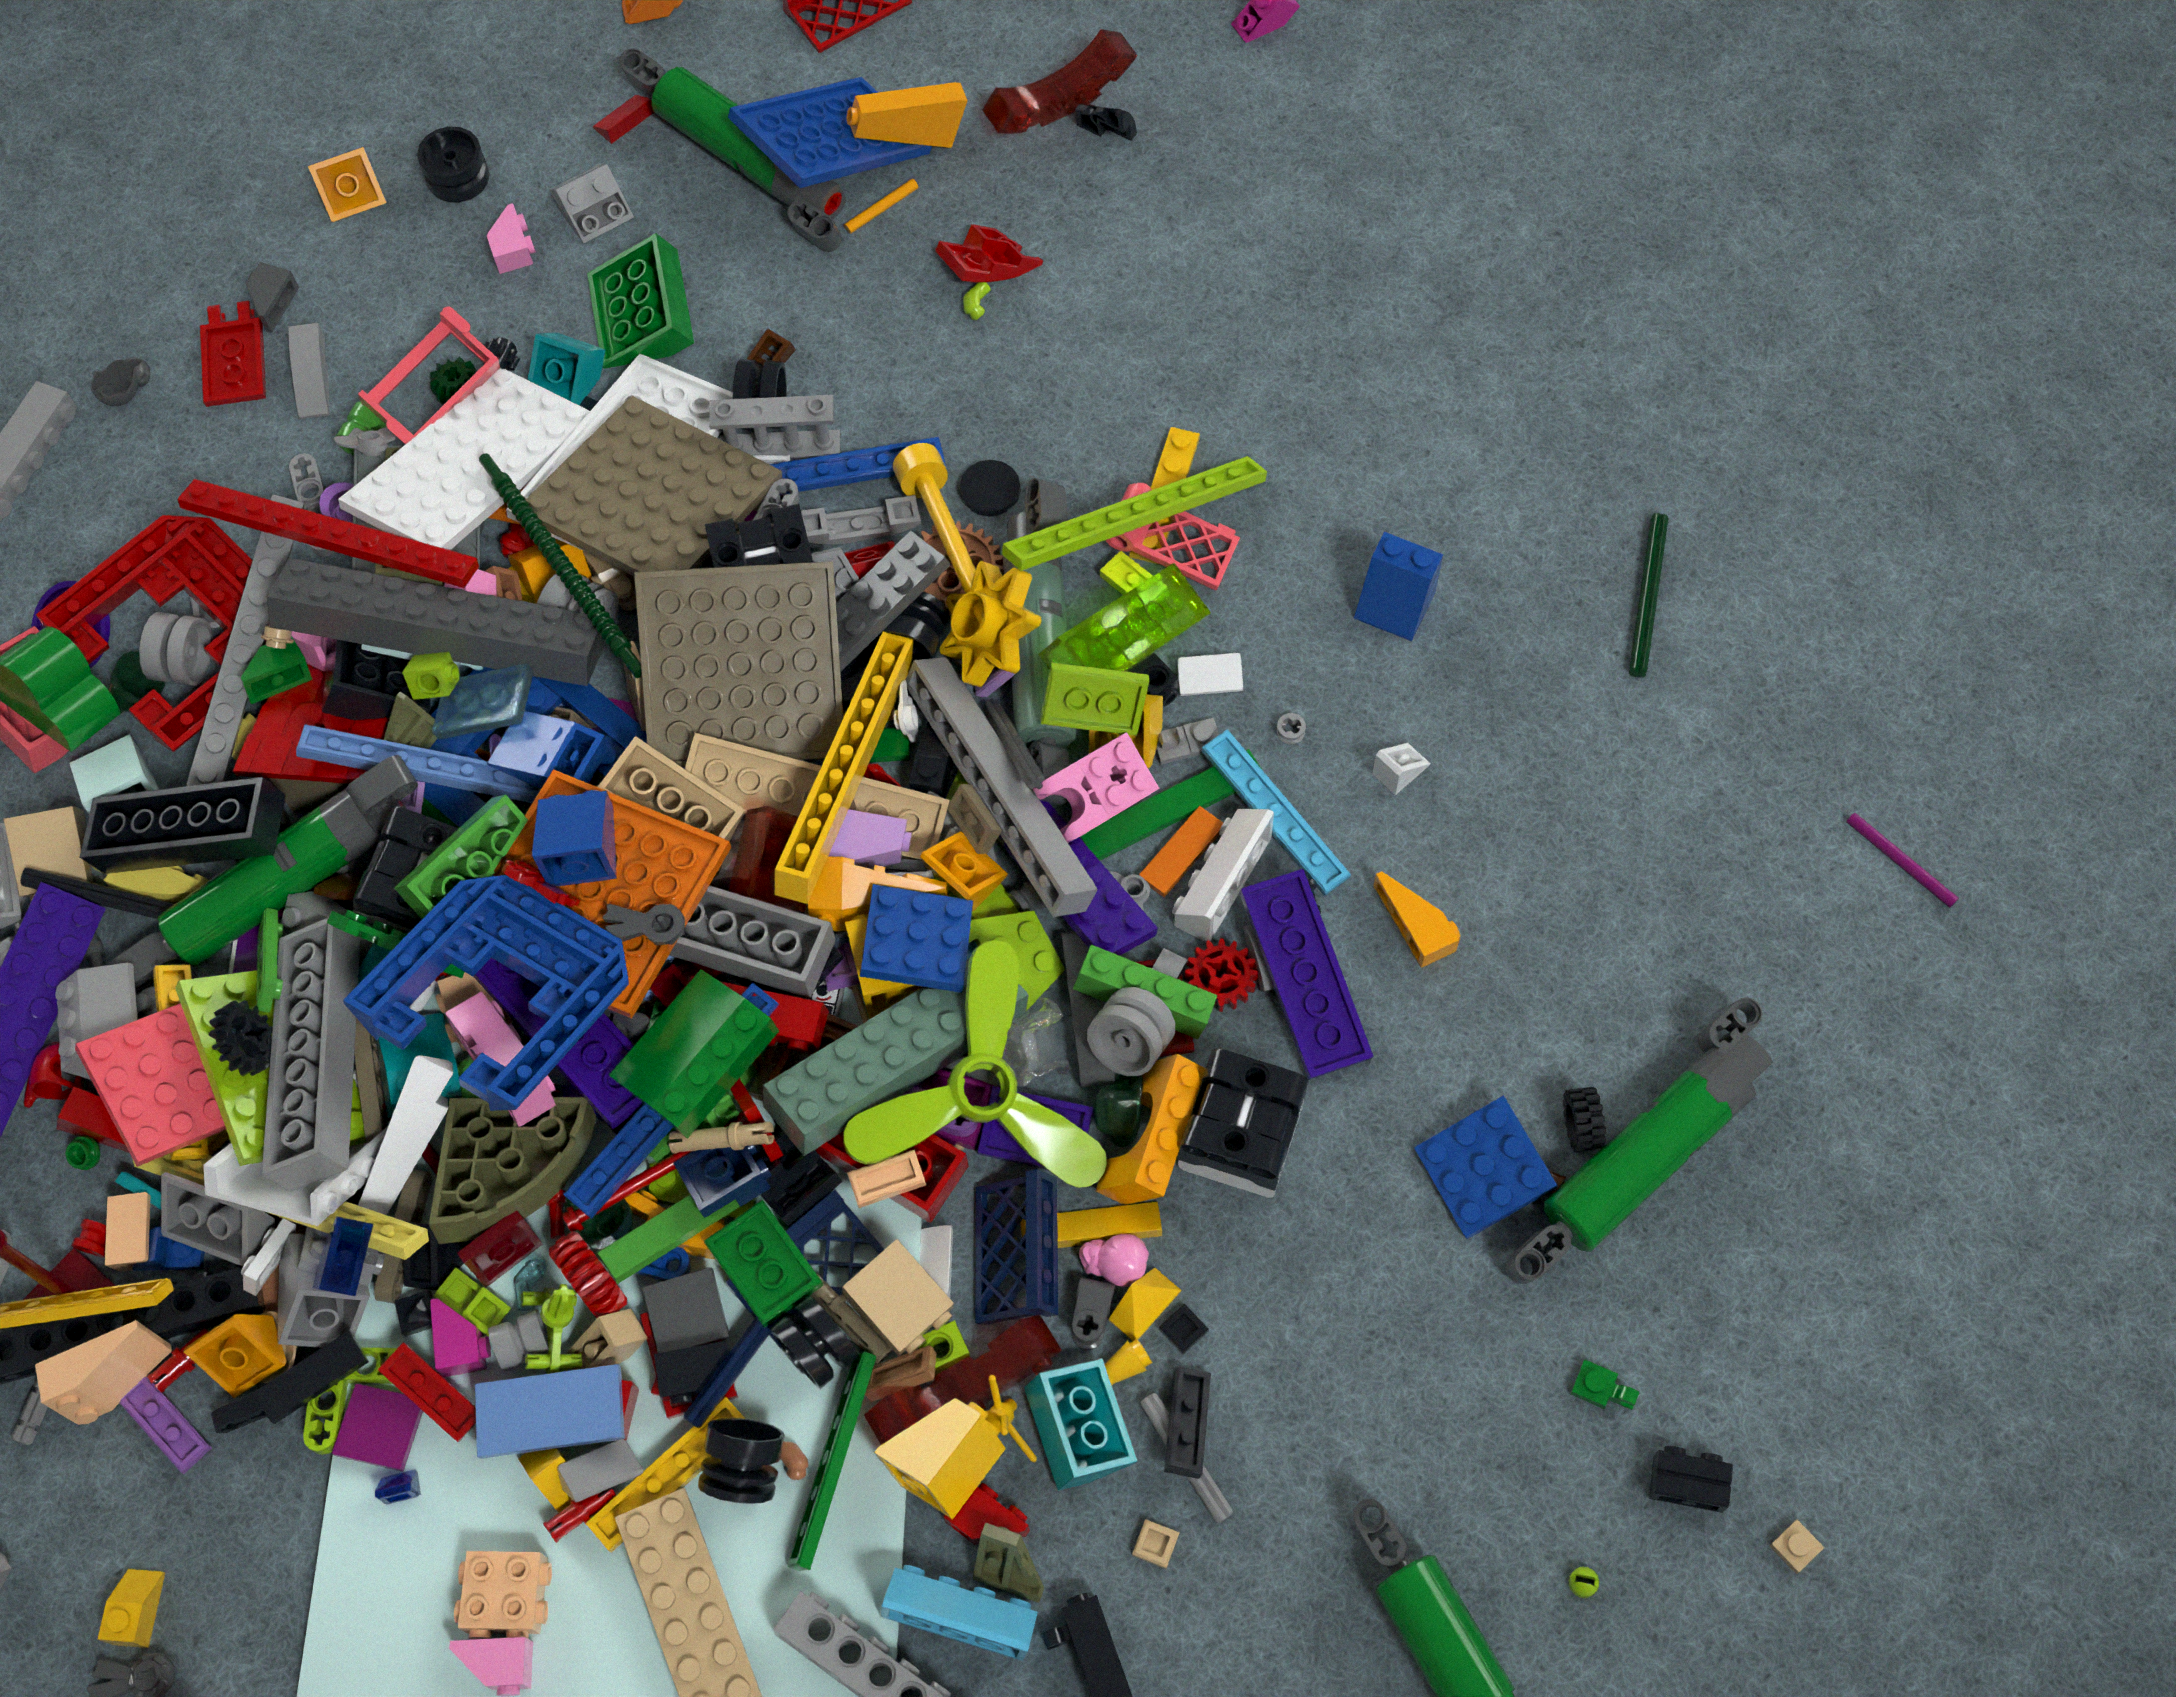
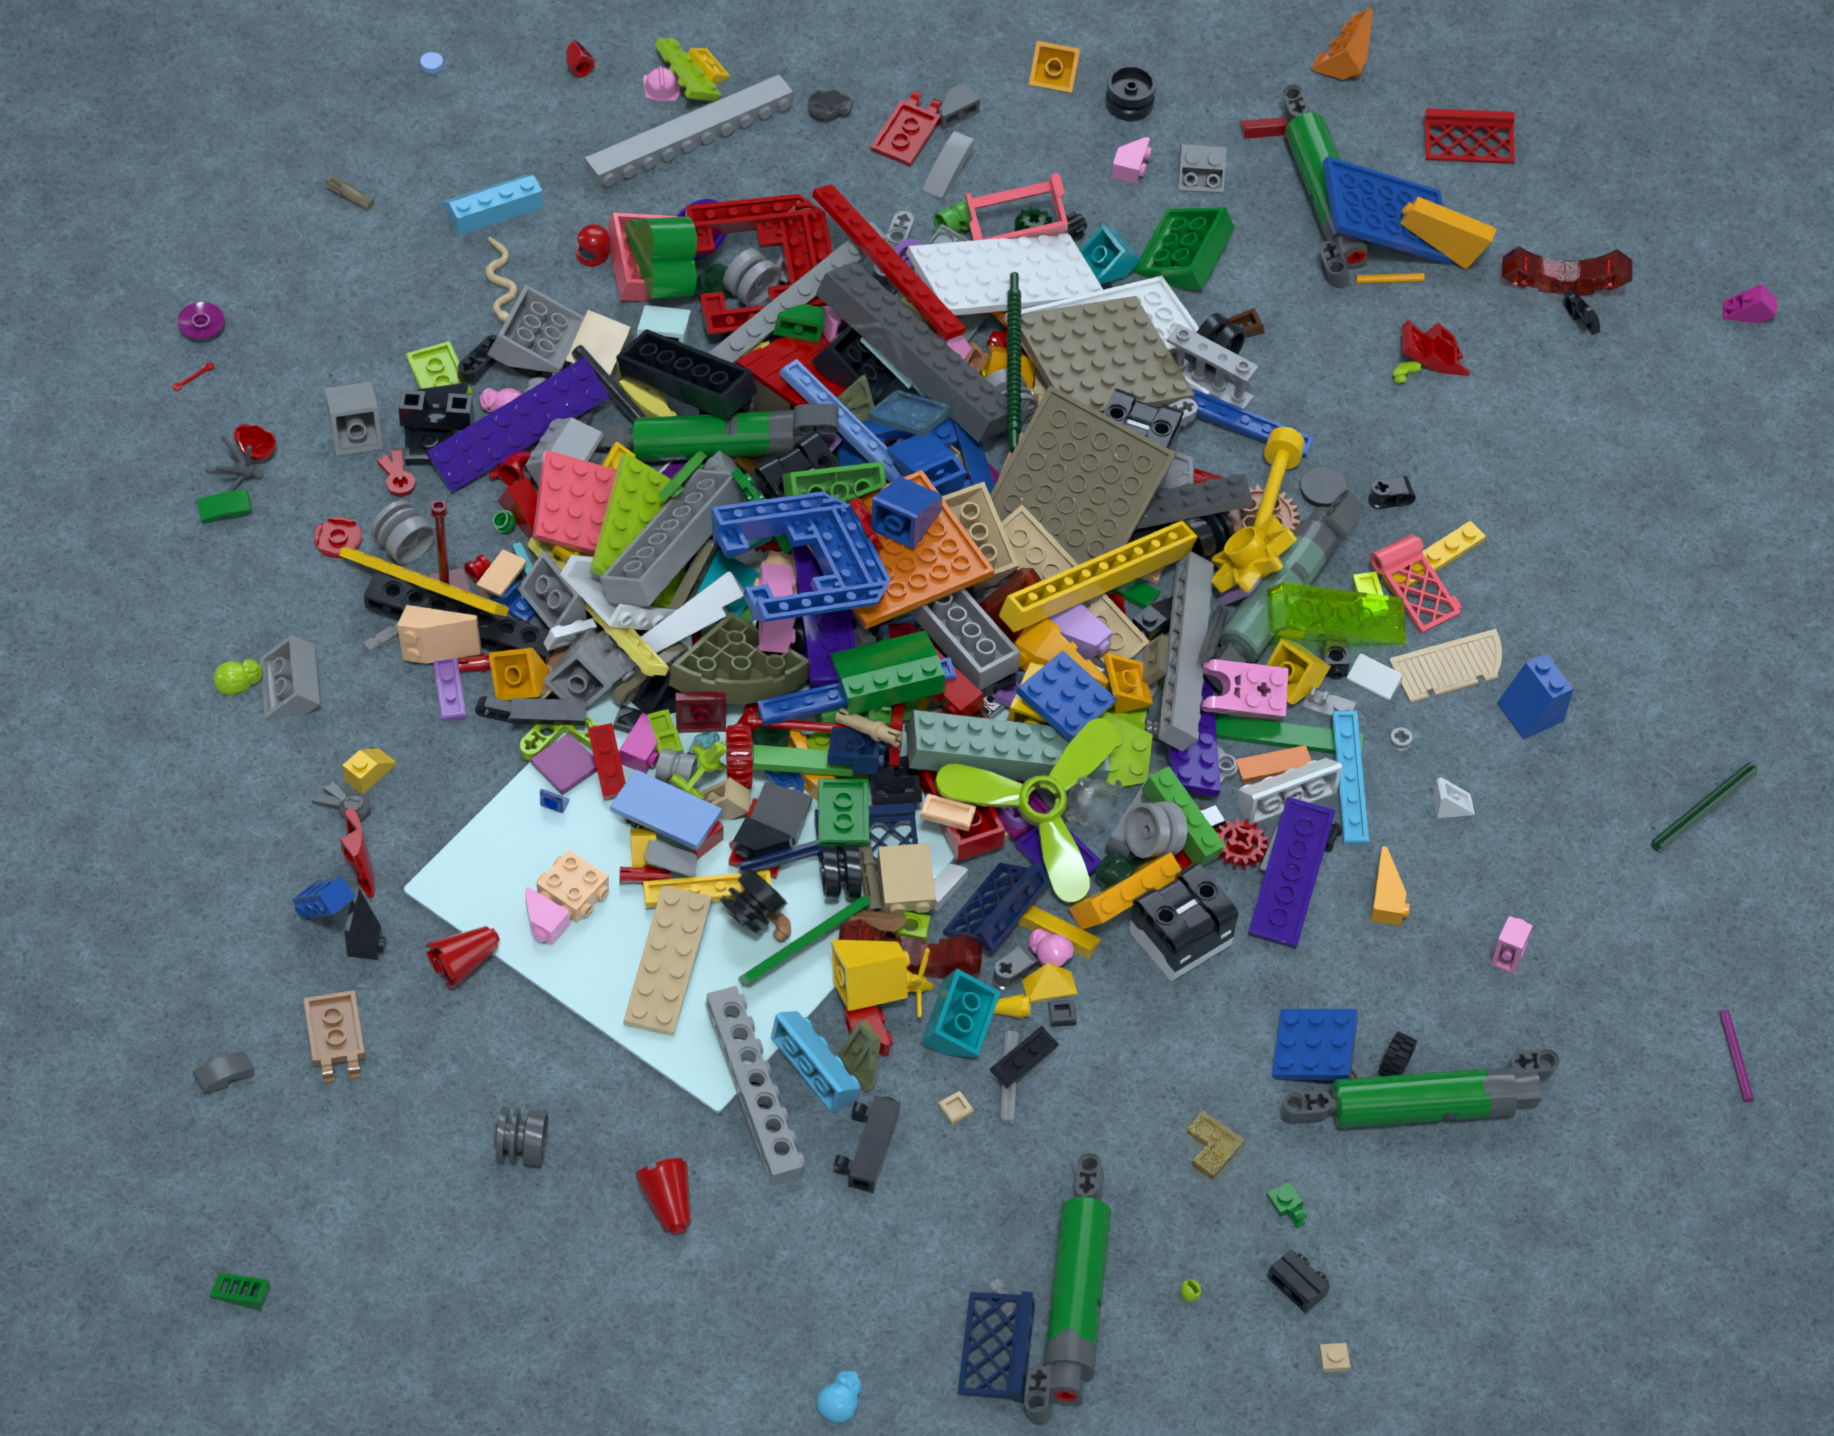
camera: 30 degrees right, 10 degrees down
(242, 1037) = (639, 502): black gear -> none
(277, 637) = (815, 303): tan plate -> none
(343, 1257) = (613, 649): clear blue slope -> none
(368, 442) = (951, 226): light grey plate -> none
(431, 675) = (890, 379): lime brick -> none
(660, 924) = (918, 587): dark grey piece -> none
(862, 524) = (1220, 458): light grey slope -> none
(906, 715) = (1161, 578): white plate -> none
(1067, 448) = (1394, 492): none -> black piece
(1094, 699) = (1280, 634): lime tile -> none
(1133, 513) = (1398, 549): lime plate -> none
(1273, 607) = (1449, 665): none -> tan piece
(1478, 1367) = (1219, 1142): none -> clear yellow plate
(1597, 895) = (1511, 944): none -> bright pink brick

